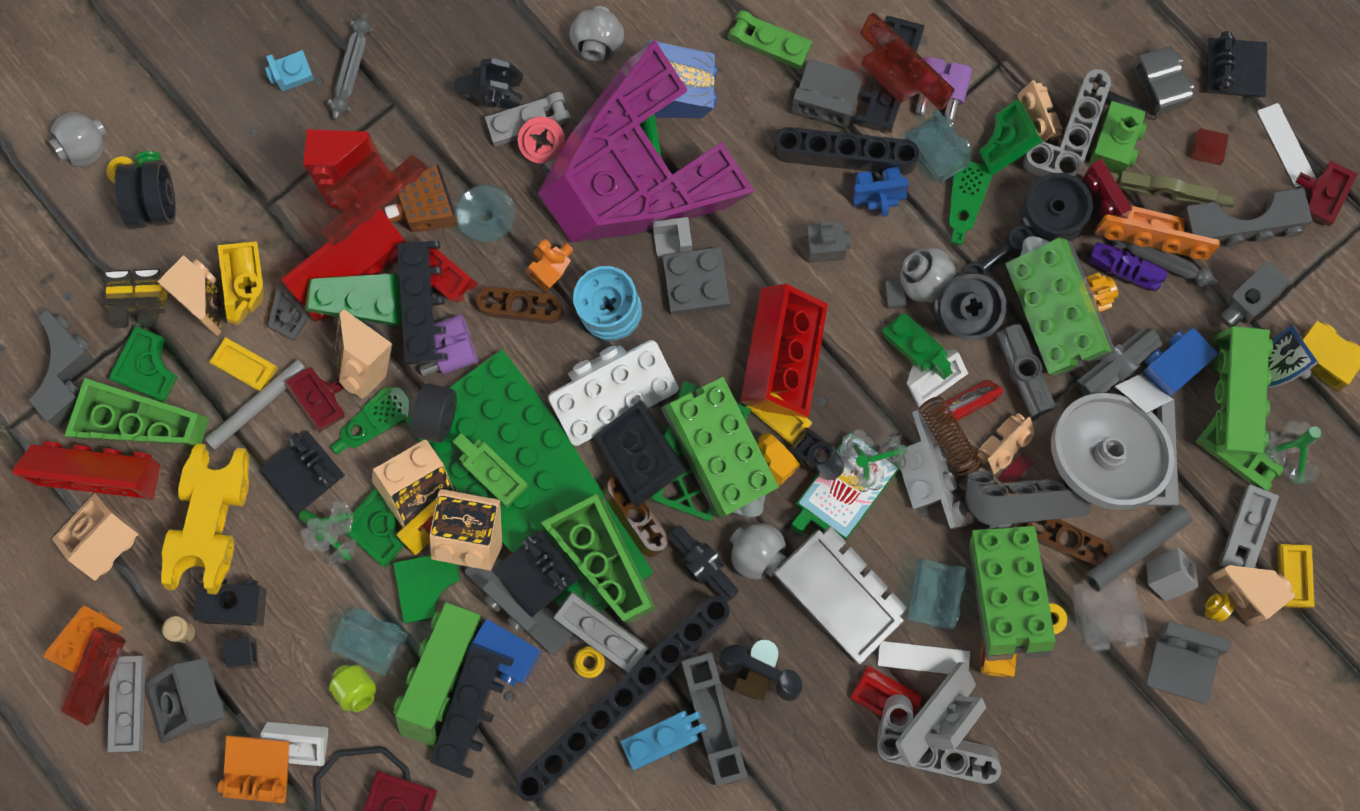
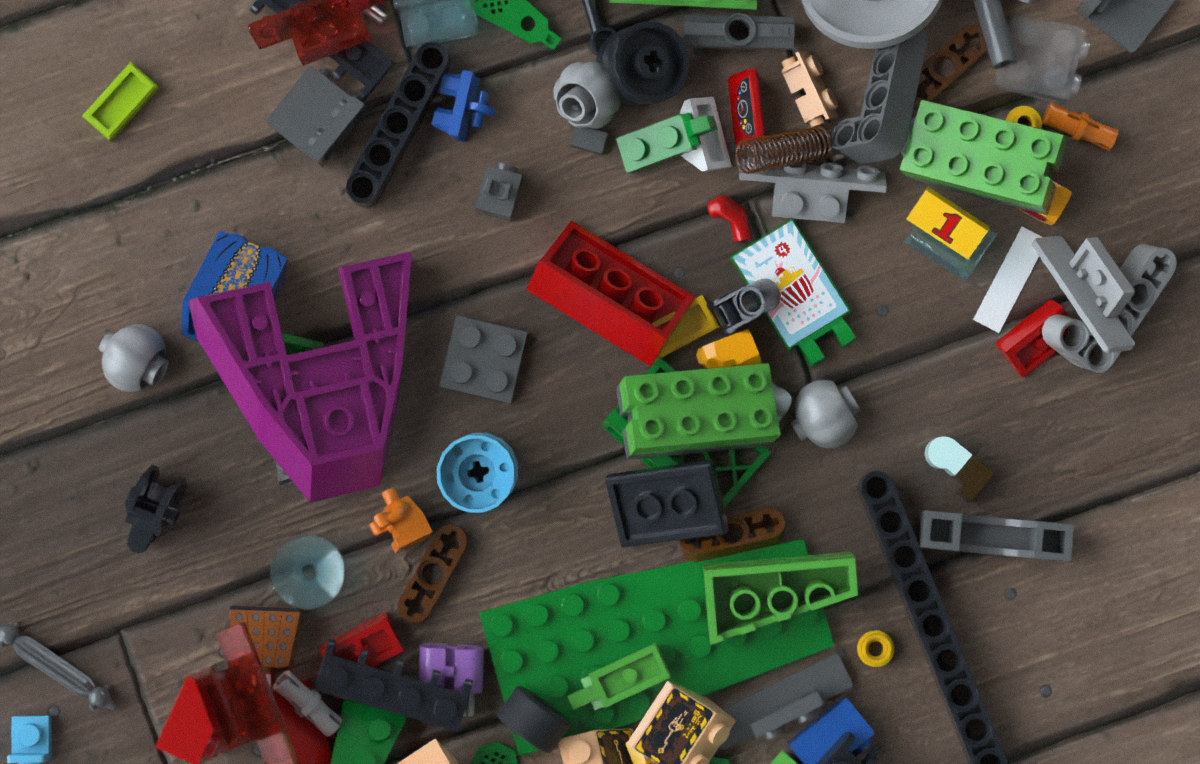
camera: 70 degrees left, 10 degrees up
(385, 243) = (307, 703): none -> light grey pin
(506, 124) = (207, 480): light grey plate -> none
(536, 573) = (758, 670): black hinge -> none
(545, 152) = (257, 474): coral gear -> none
(600, 632) = (850, 623): light grey plate -> none
(609, 387) = (574, 506): white bracket -> none
(662, 739) = (992, 600): dark azure hinge -> none
(672, 236) = (423, 366): light grey panel -> none
(703, 563) = (815, 480): black axle -> none
(770, 40) = (223, 156): bright green plate -> none
(788, 681) = (936, 485): black bar -> none
(839, 596) = (909, 345): hinge -> none
(865, 472) = (789, 259): clear plant -> none
(885, 420) = (734, 213): none -> red arm
(947, 585) = (948, 223): none -> yellow tile
(1016, 469) = (843, 91): dark red piece -> none
(1069, 664) = (1080, 126): none -> orange pin

